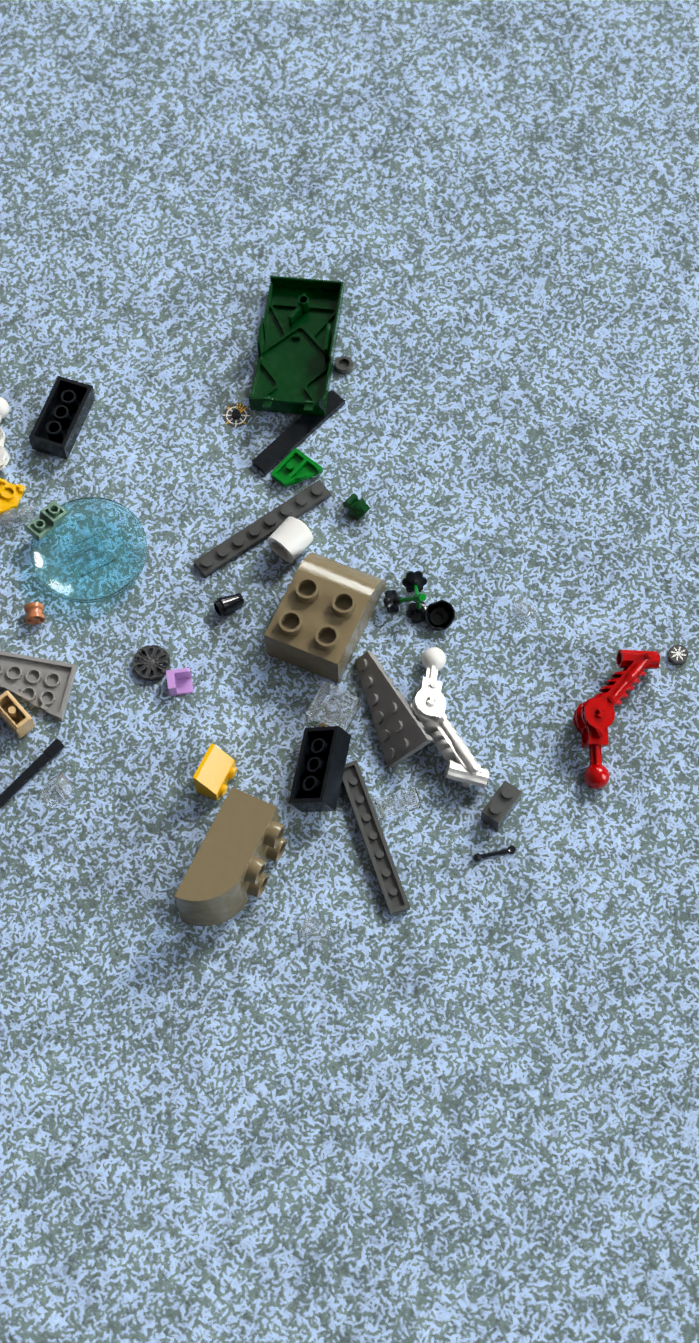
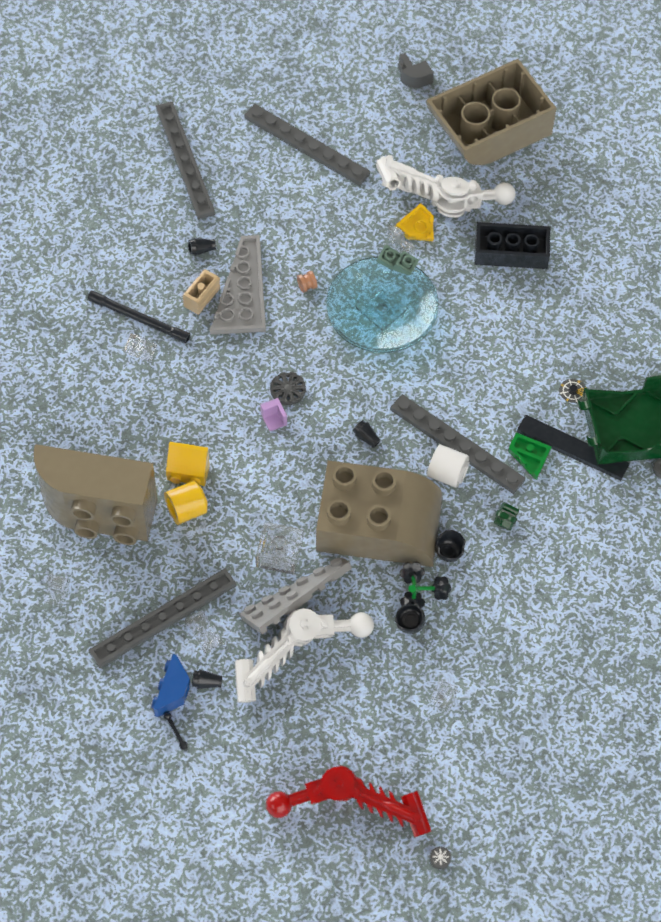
camera: 70 degrees right, 5 degrees down
(257, 780) = (186, 502): none -> yellow piece
(320, 769) = (214, 550): black brick -> none
(374, 561) = (450, 546): none -> black hair
(450, 813) = (204, 679): none -> black cone
(451, 843) = (172, 688): none -> blue slope
(501, 805) = (223, 722): dark grey brick -> none

